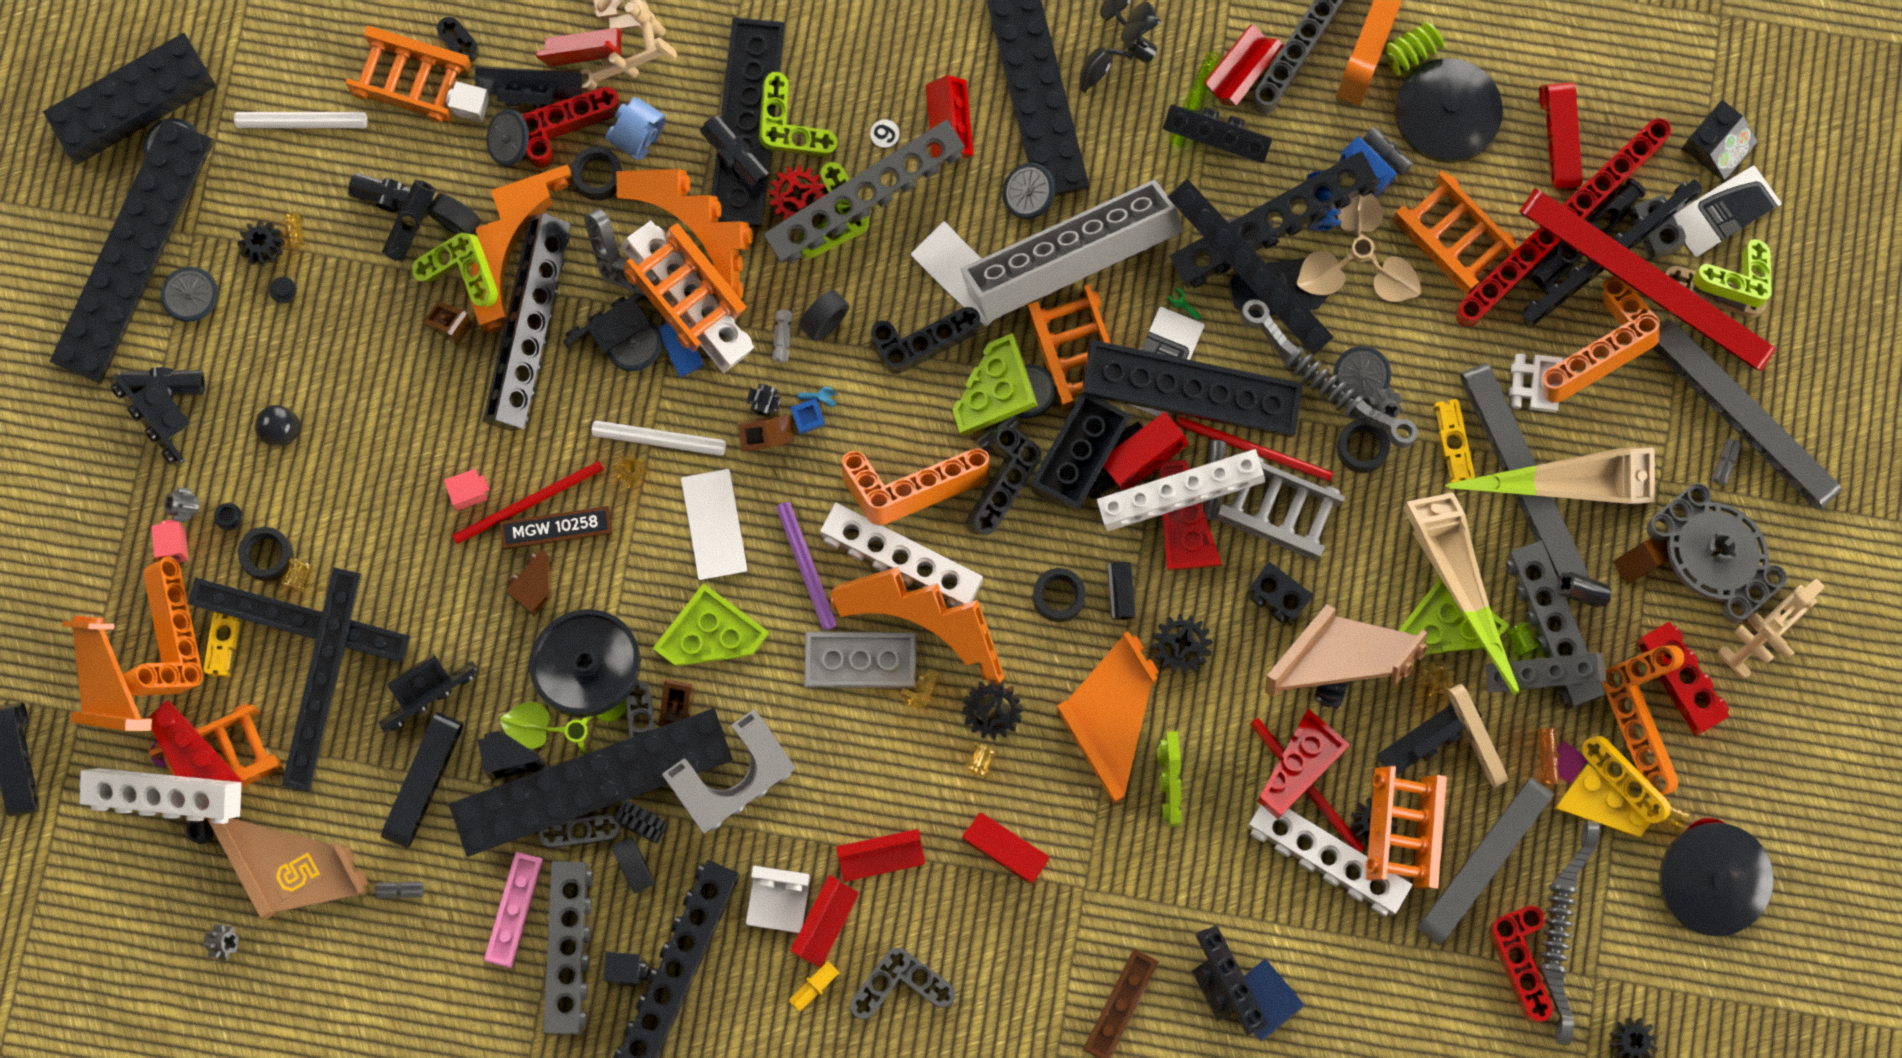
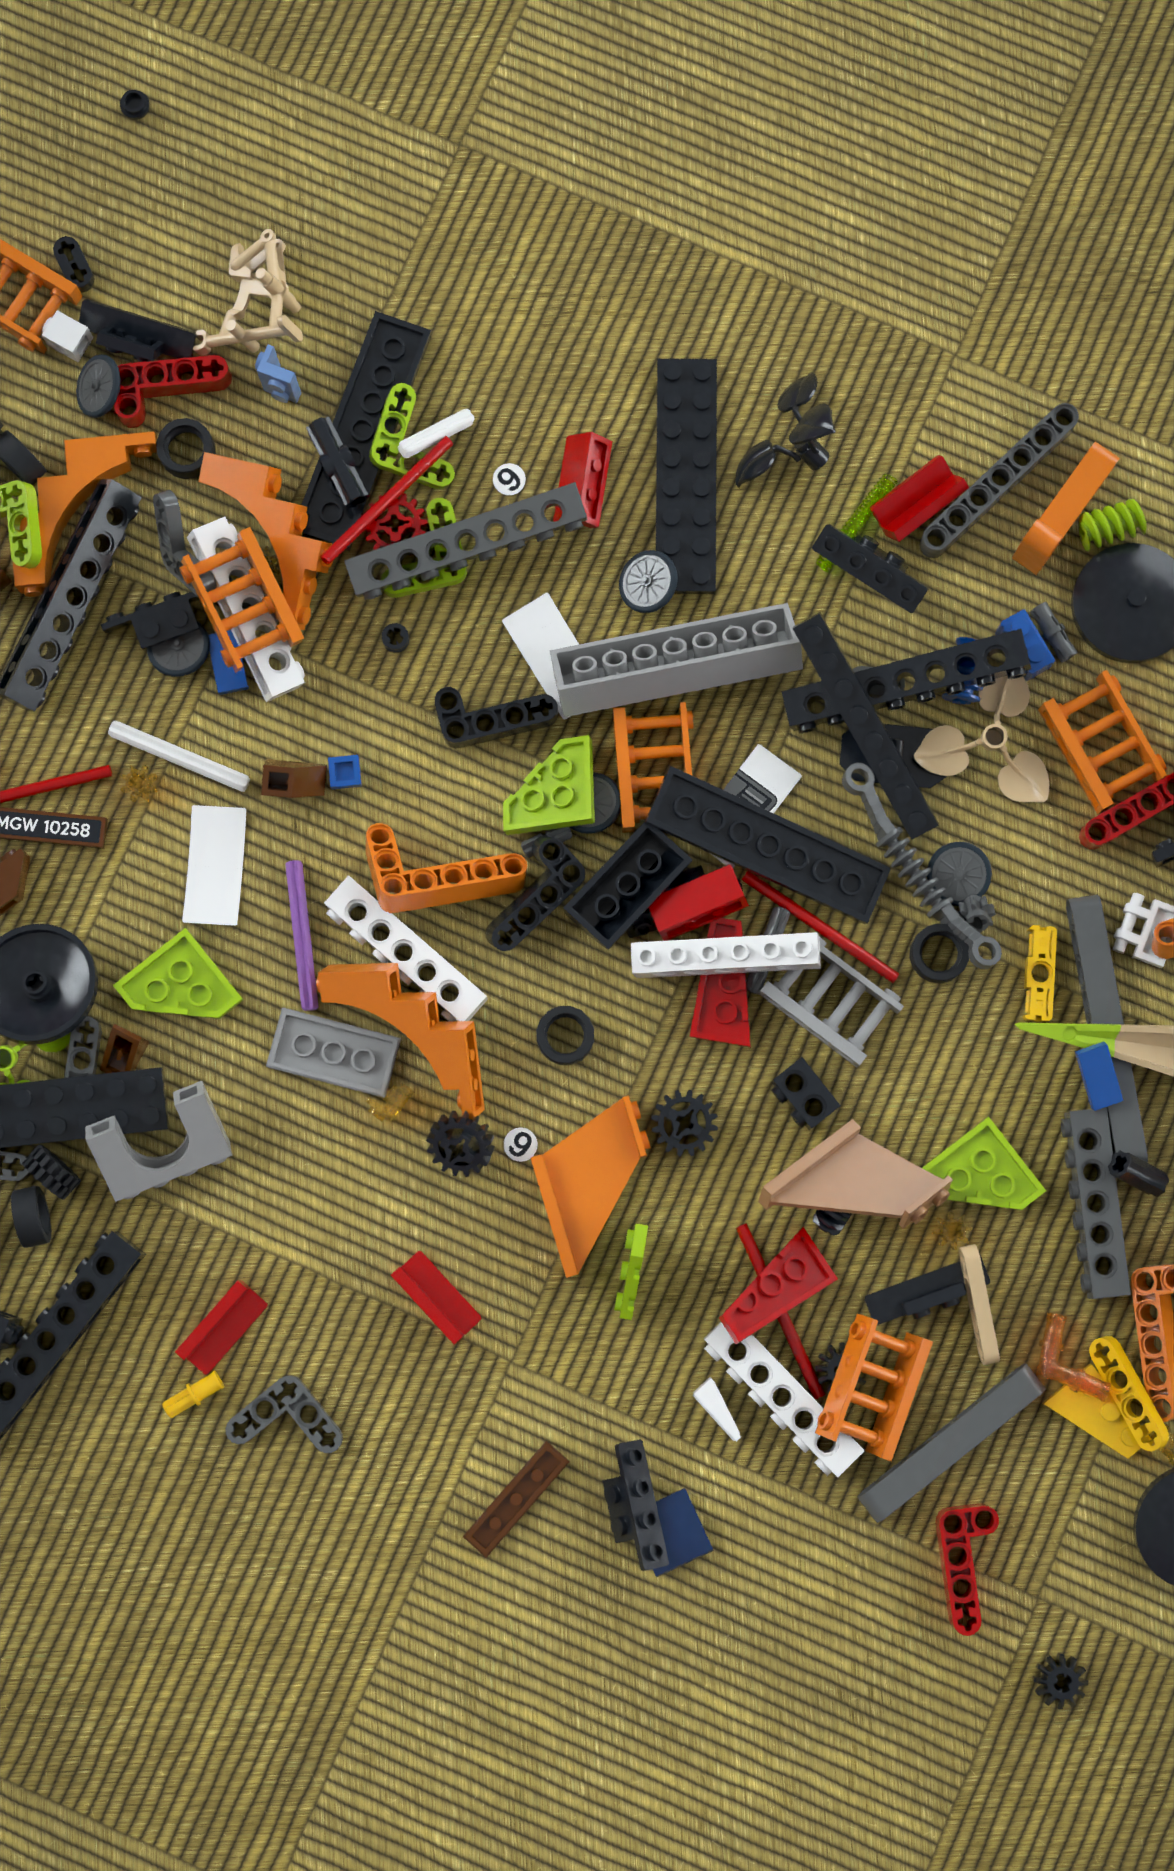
camera: 15 degrees right, 5 degrees up
(581, 47) = (202, 304): panel -> none
(636, 128) = (238, 409): medium blue brick -> none
(663, 95) = (276, 380): none -> medium blue bracket
(763, 400) = (301, 742): black gear -> none
(778, 899) = (178, 1292): white bracket -> none
(782, 336) = (340, 676): light grey axle -> none
(786, 174) = (386, 500): none -> red piece
(812, 108) = (434, 433): none -> white axle
(816, 284) = (403, 633): none -> black bush
(823, 395) = (367, 753): dark azure hand -> none
(824, 315) = (388, 666): black tyre -> none
(880, 855) = (301, 1271): red panel -> none
(981, 760) = (434, 1195): clear yellow bush -> none
(1043, 699) = (520, 1144): none -> white sticker
(1121, 591) = (633, 1047): black axle -> none
(1183, 304) = (784, 747): green hand -> none
(1270, 878) = (712, 1401): none -> white slope
(1446, 540) = (1002, 1084): tan plate -> none
(1522, 639) = (1056, 1209): clear neon green bush -> none
(1528, 513) = (1099, 1076): none -> blue tile
(1550, 672) = (1071, 1256): dark grey brick -> none
(1553, 972) = (991, 1581): dark grey piece -> none
(1570, 761) = (1075, 1352): magenta sticker -> none
(1579, 778) = (1077, 1380): none -> clear orange pin

